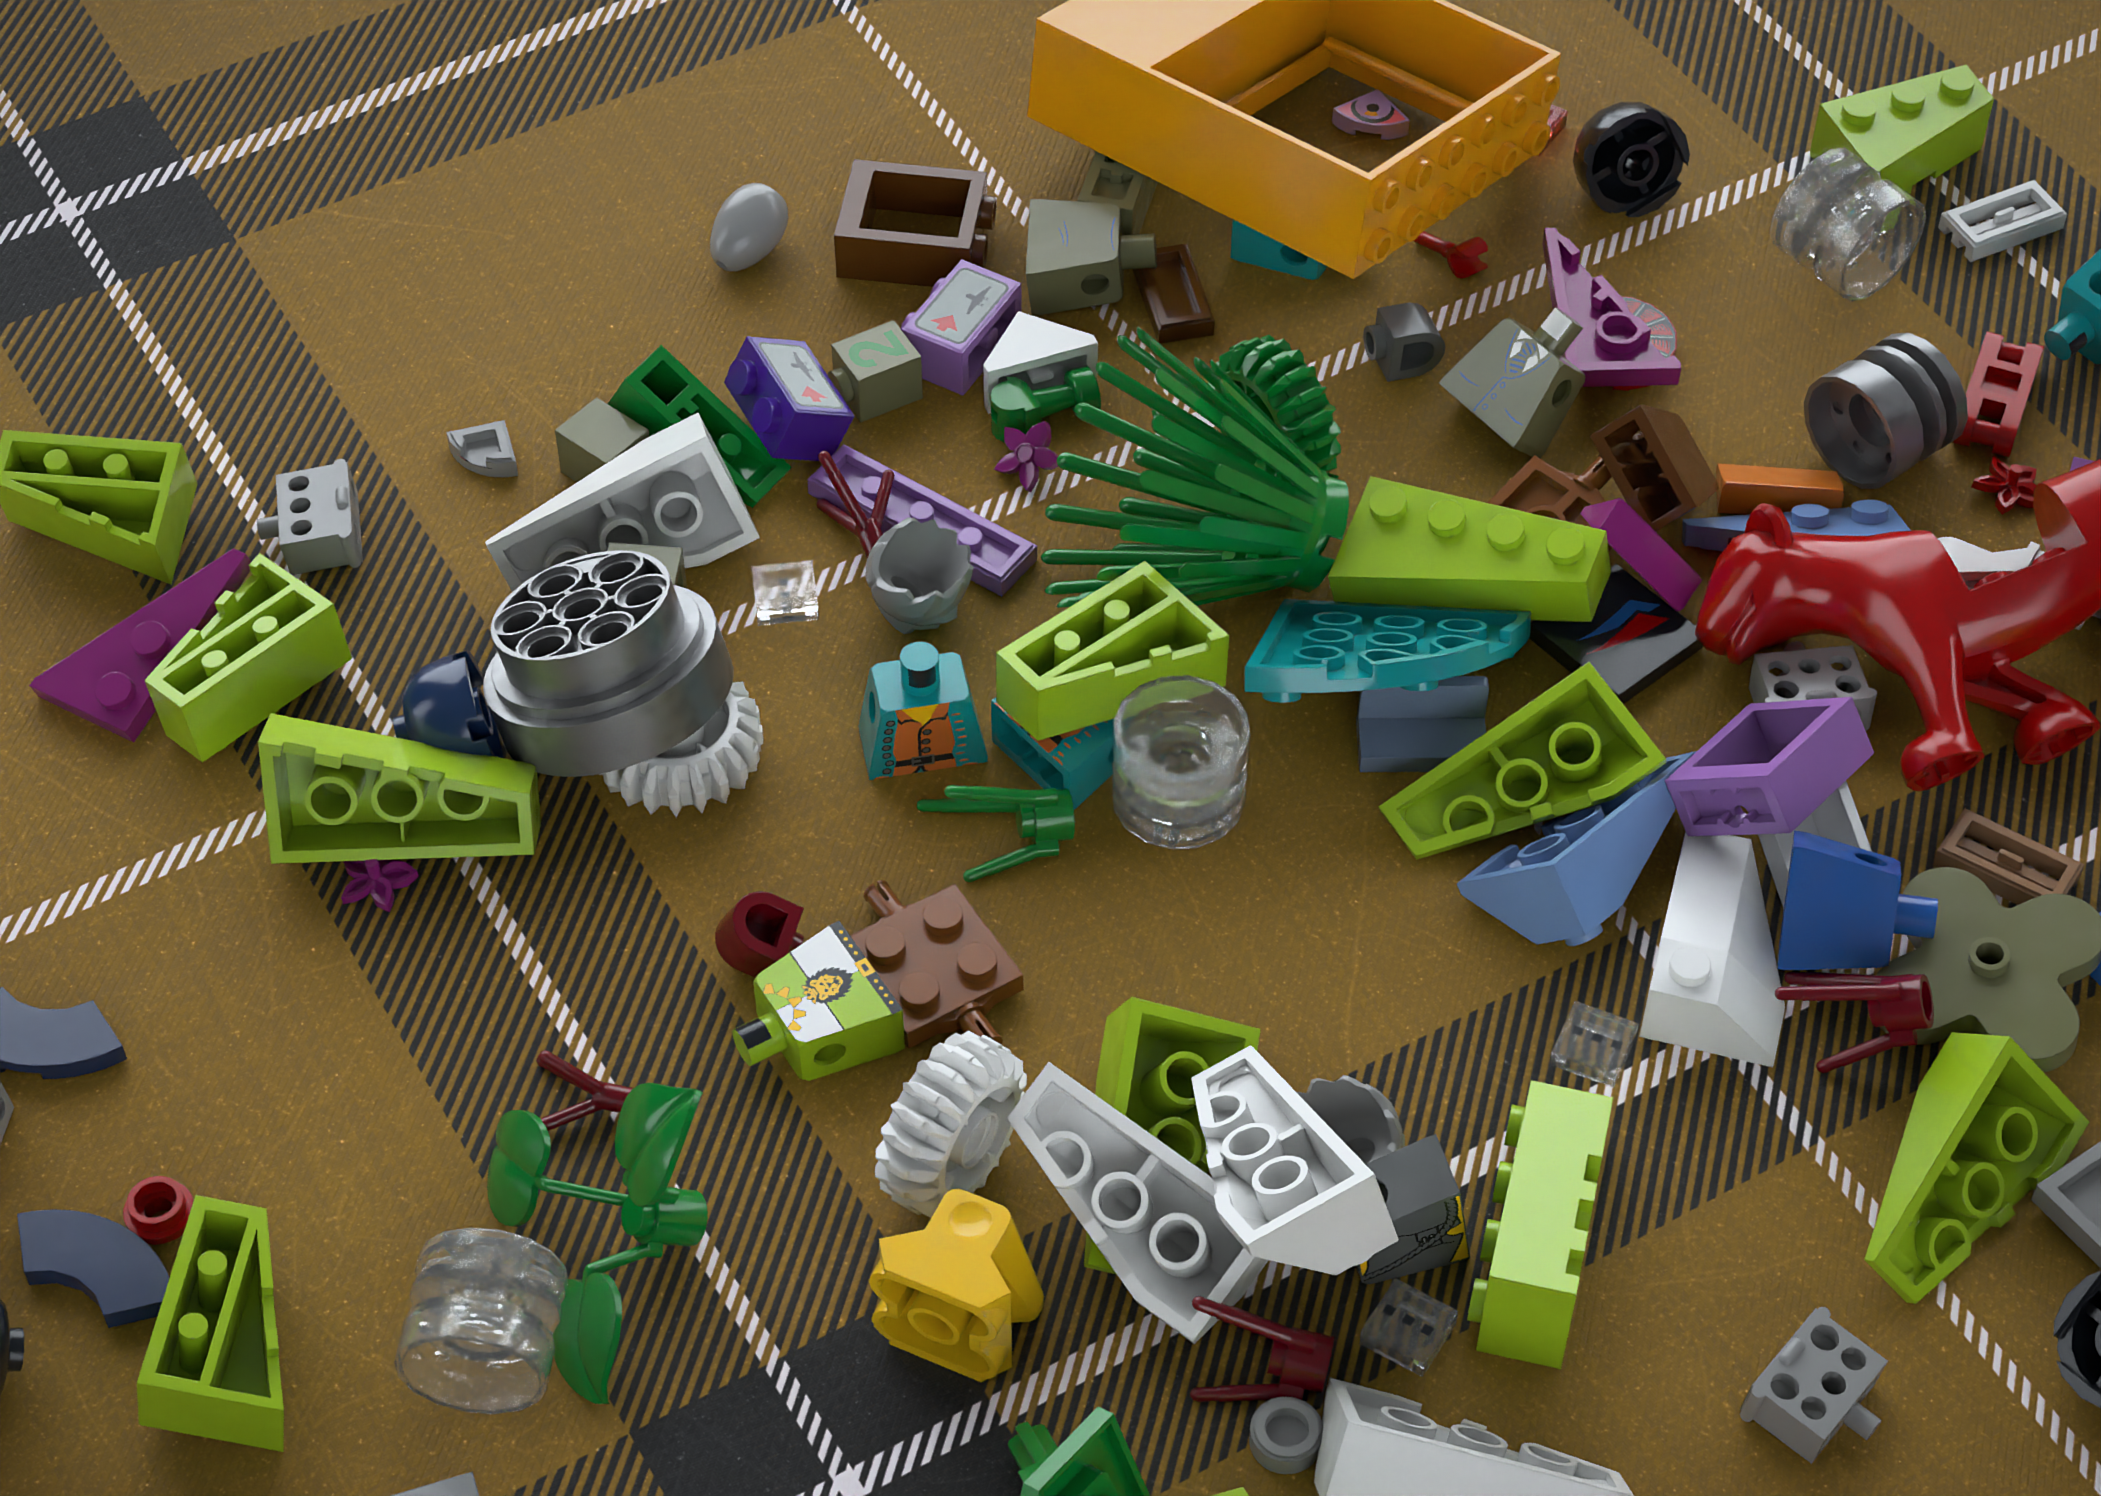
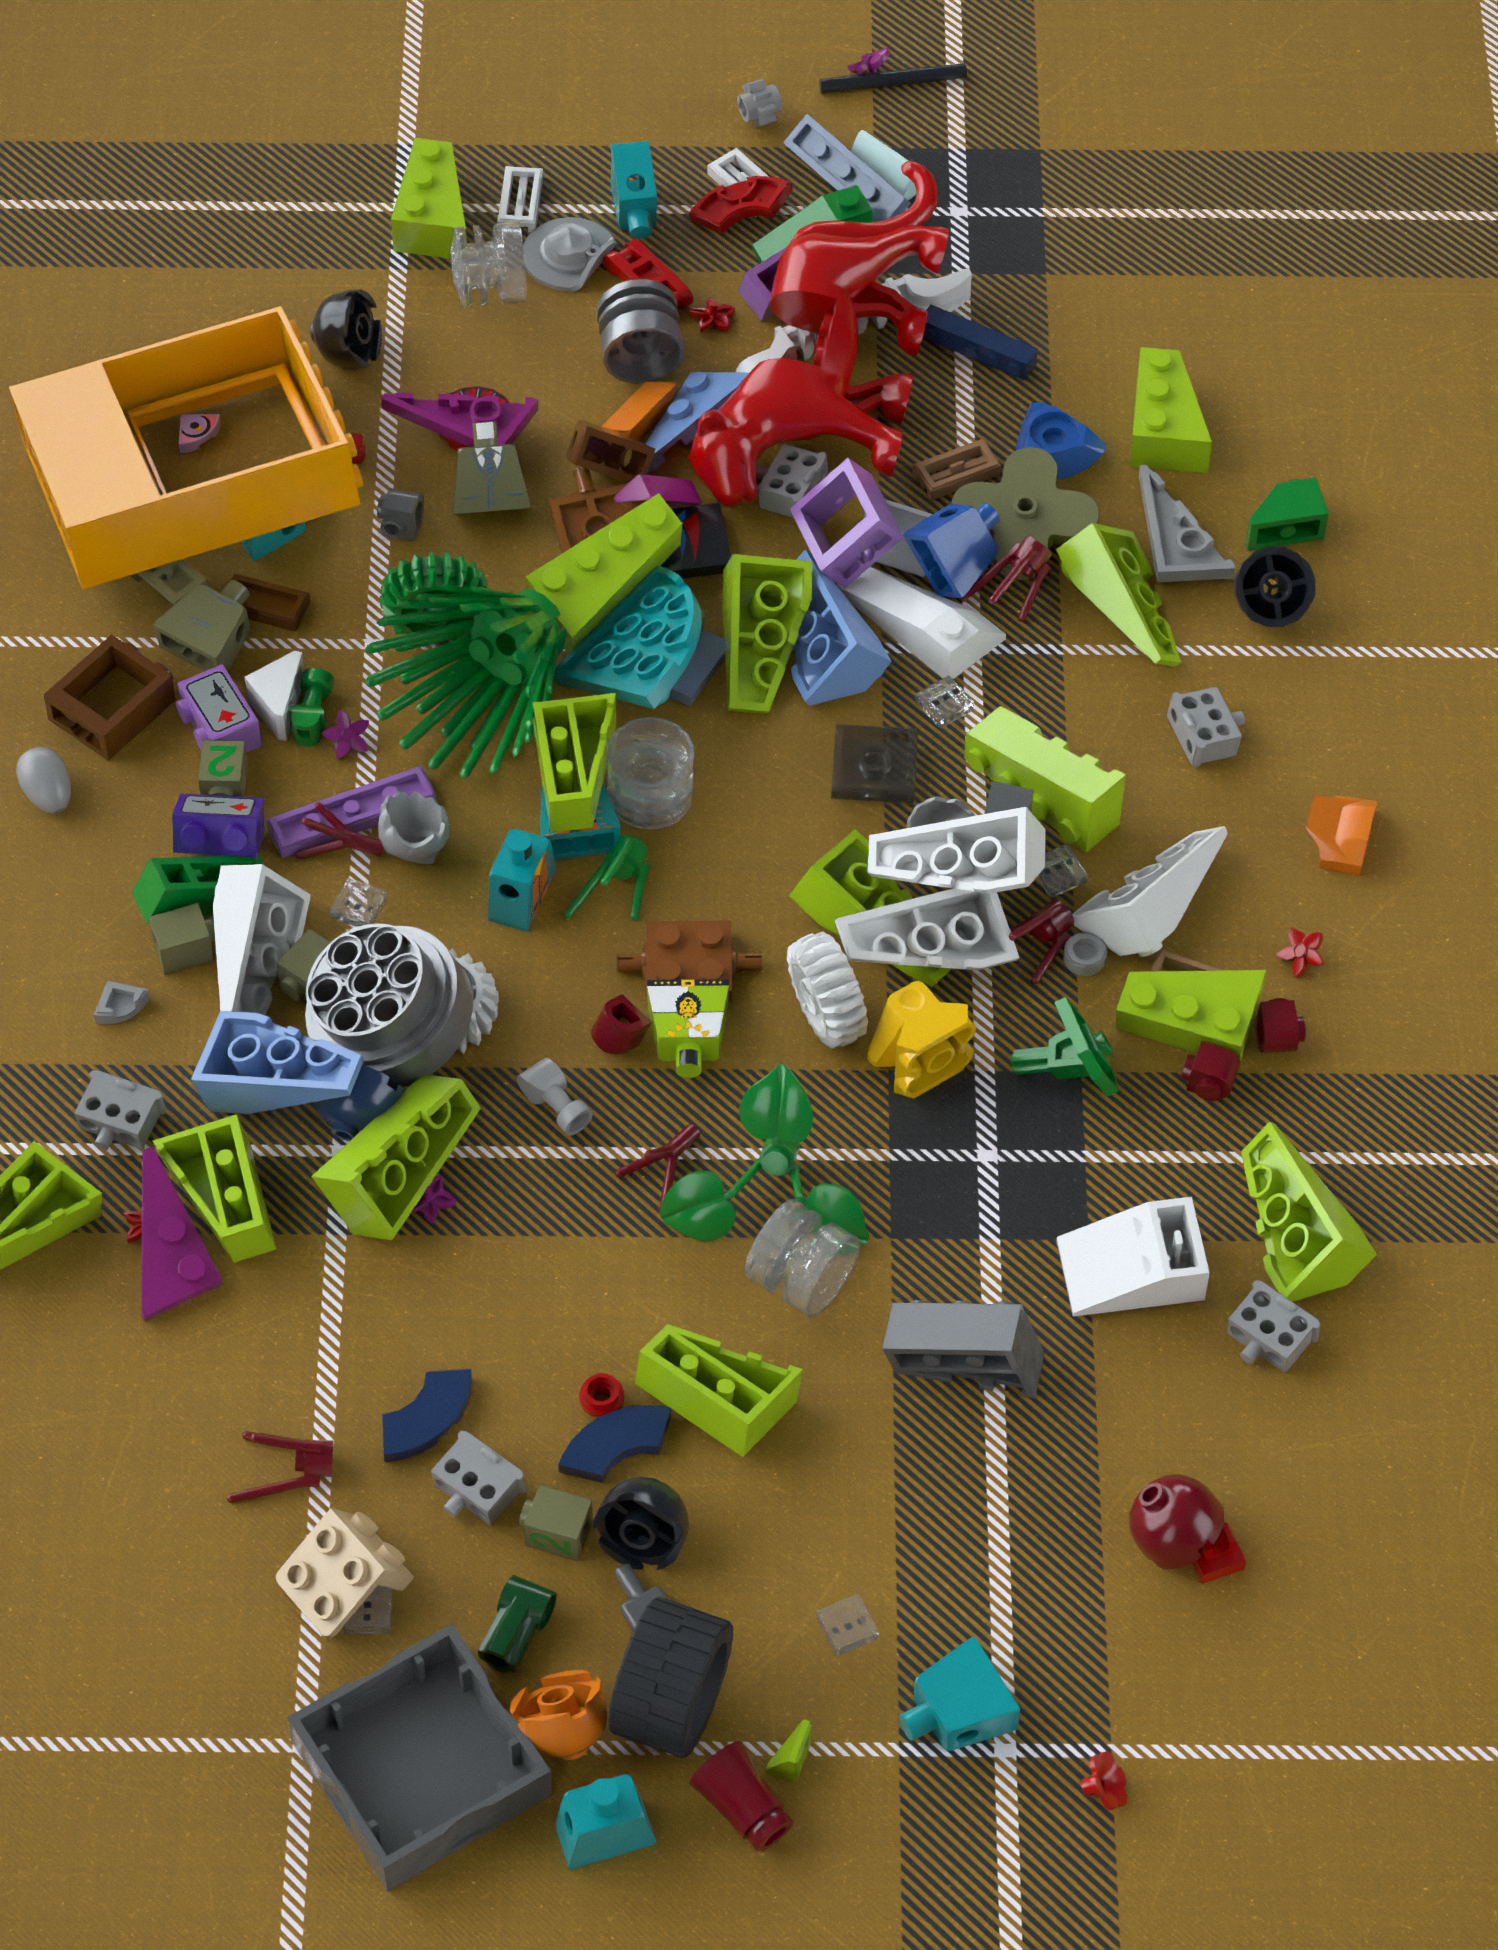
camera: 60 degrees left, 5 degrees up
(434, 594) = (265, 1067): none -> medium blue wedge
(623, 905) = (547, 1084): none -> light grey leg
(1416, 1011) = (874, 763): none -> clear smoke plate
(1966, 297) = (566, 252): none -> light grey hat

